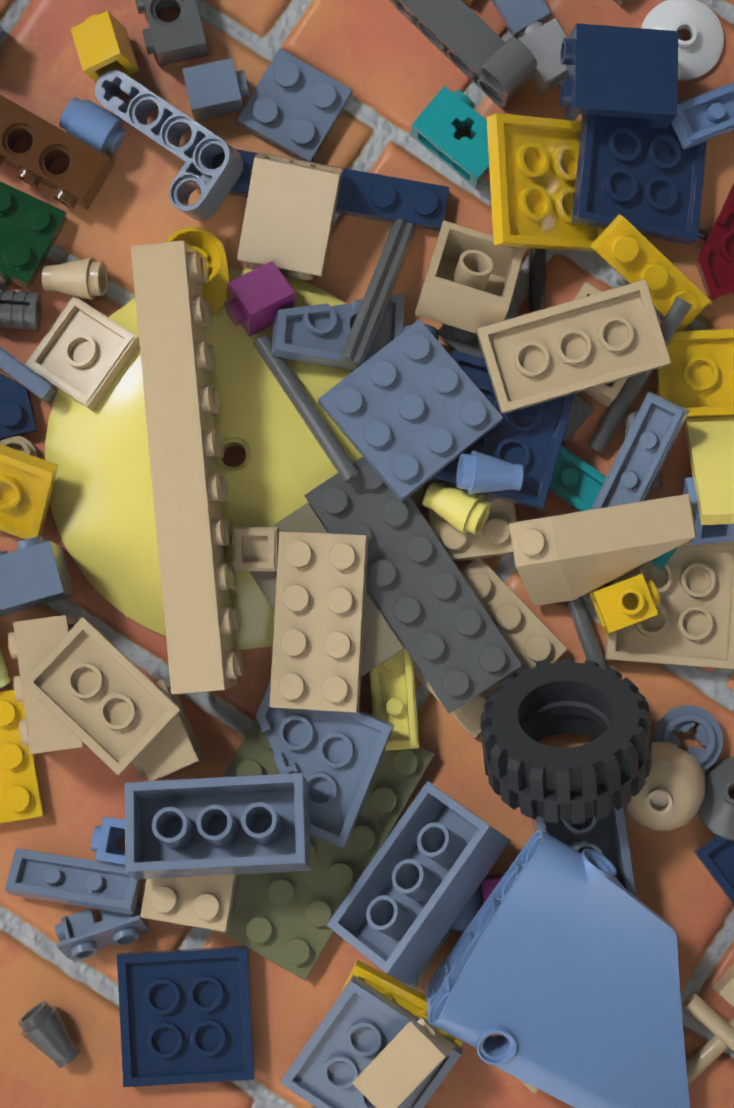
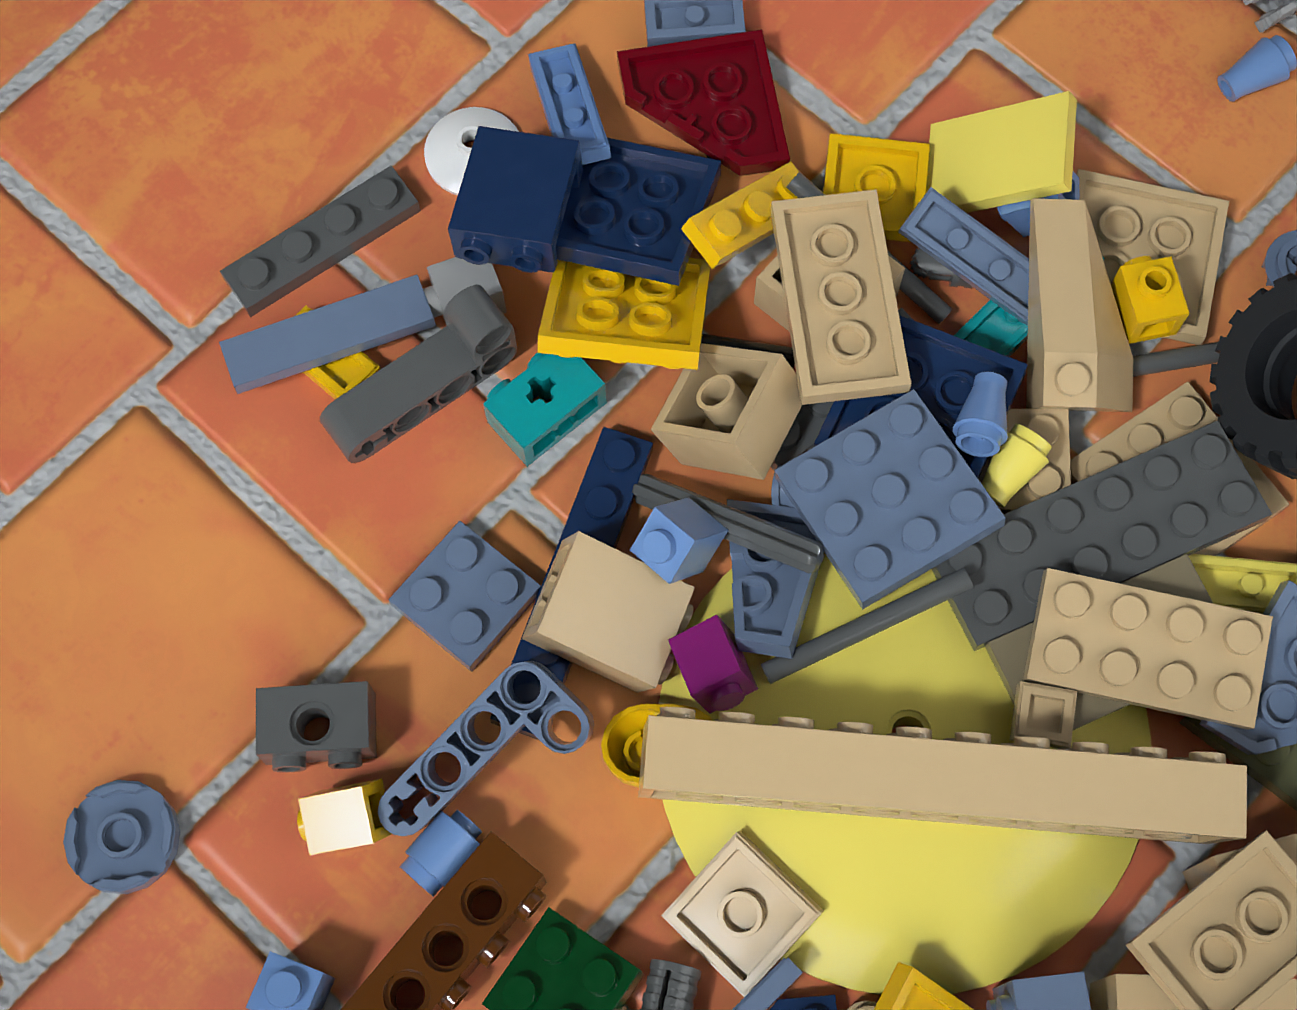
camera: 80 degrees left, 15 degrees down
(77, 278) = (640, 906): tan cone -> none
(215, 88) = (425, 686): sand blue brick -> none
(353, 256) = (678, 540): none -> medium blue brick

